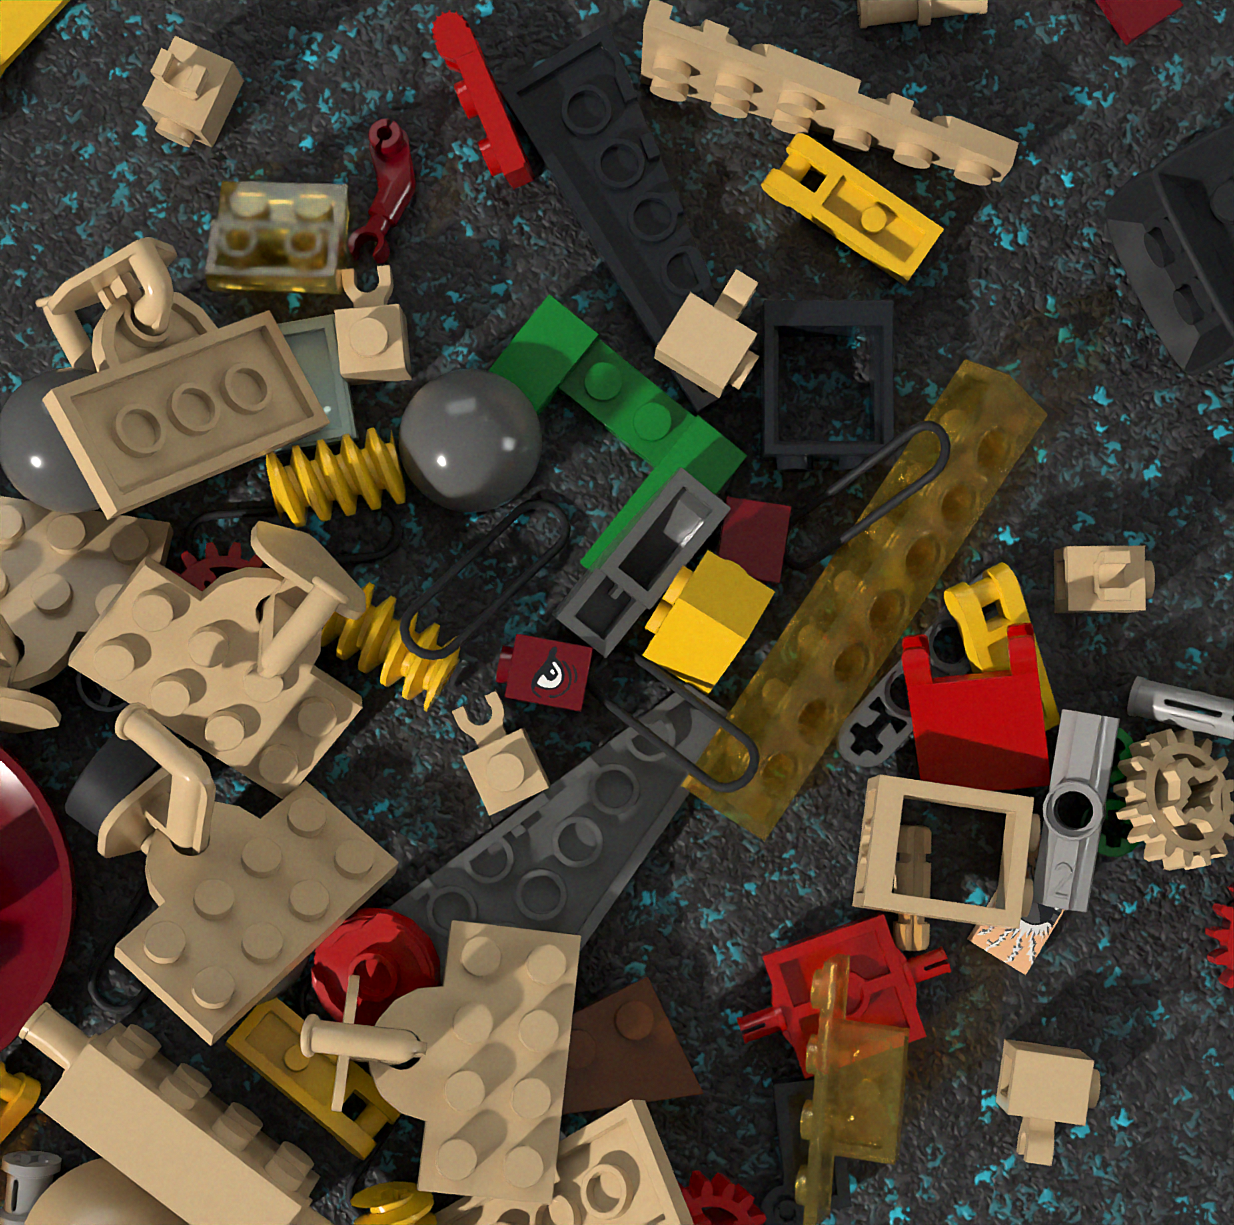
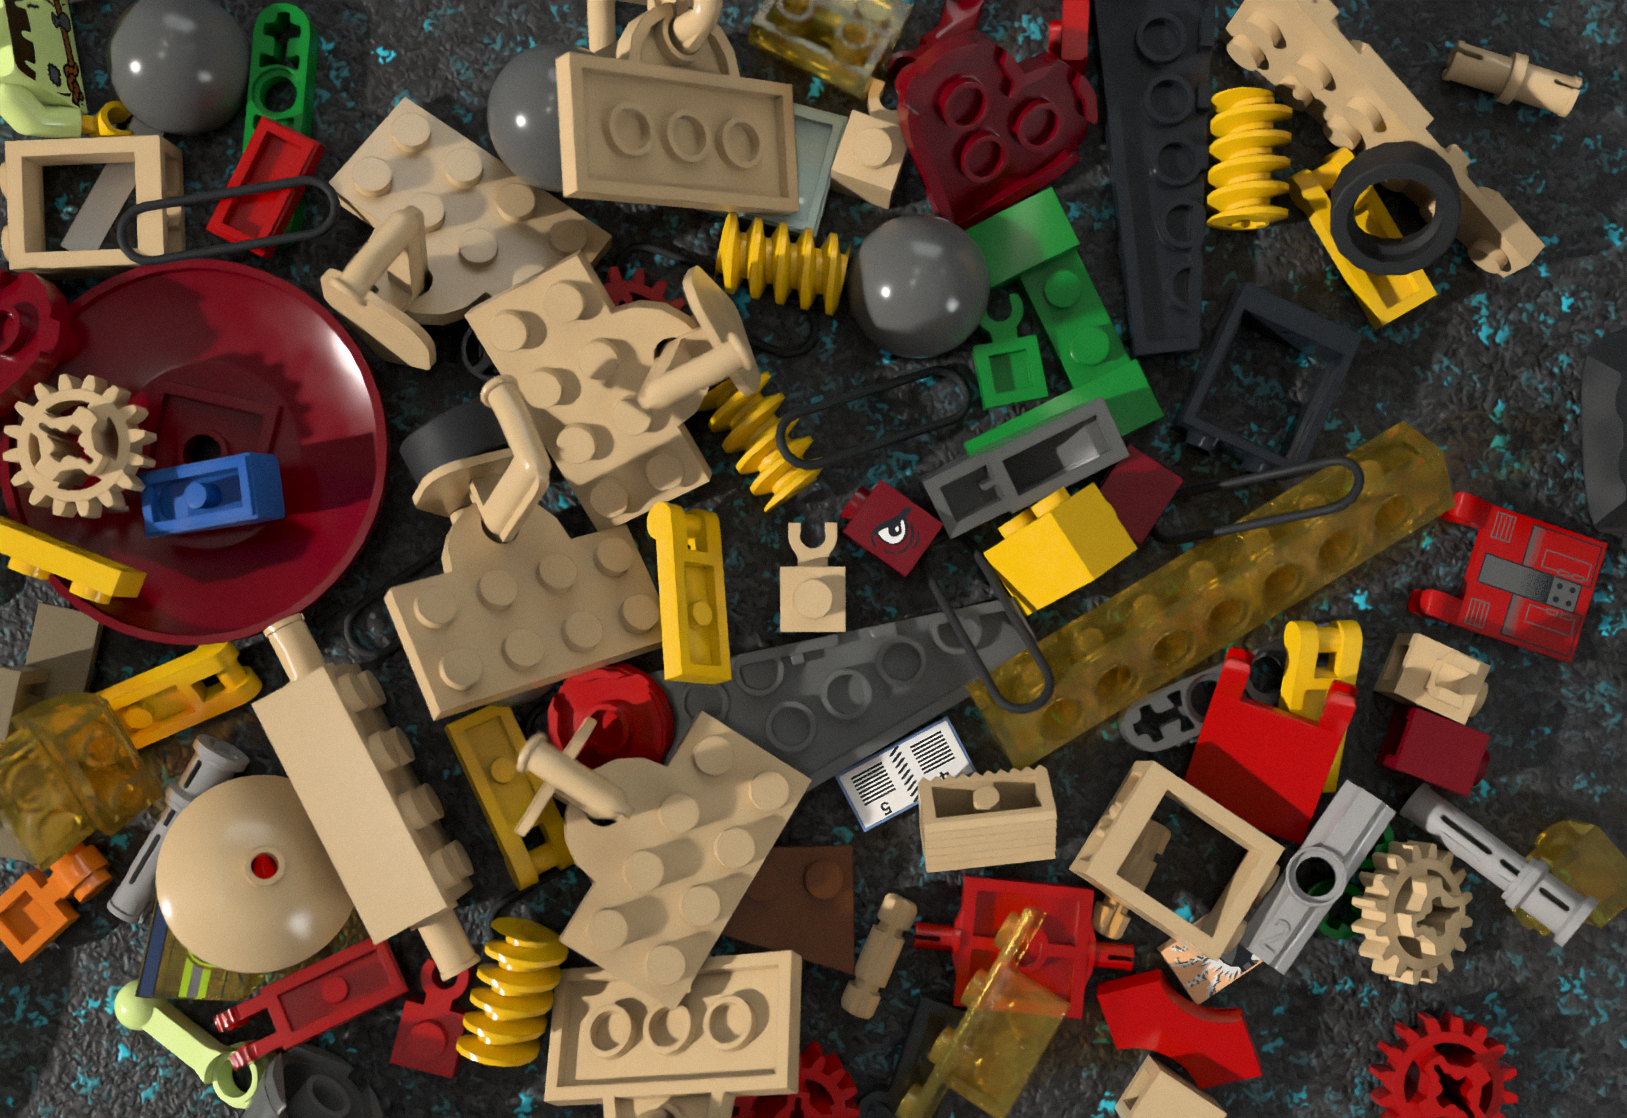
camera: 30 degrees right, 0 degrees up
(393, 817) = (691, 594): none -> yellow plate
(467, 267) = (989, 125): none -> dark red plate
(586, 472) = (1008, 366): none -> green plate
(665, 888) = (889, 778): none -> white tile
(709, 341) = (1180, 296): tan brick -> none
(715, 186) = (1246, 159): none -> yellow piece
(718, 1065) = (879, 956): none -> tan axle
(756, 896) = (987, 819): none -> tan brick
(884, 215) = (1410, 252): none -> black tyre
(1044, 1003) = (1205, 1040): none -> red tile
(1132, 644) = (1434, 750): none -> dark red brick
(1143, 453) = (1522, 581): none -> red flag

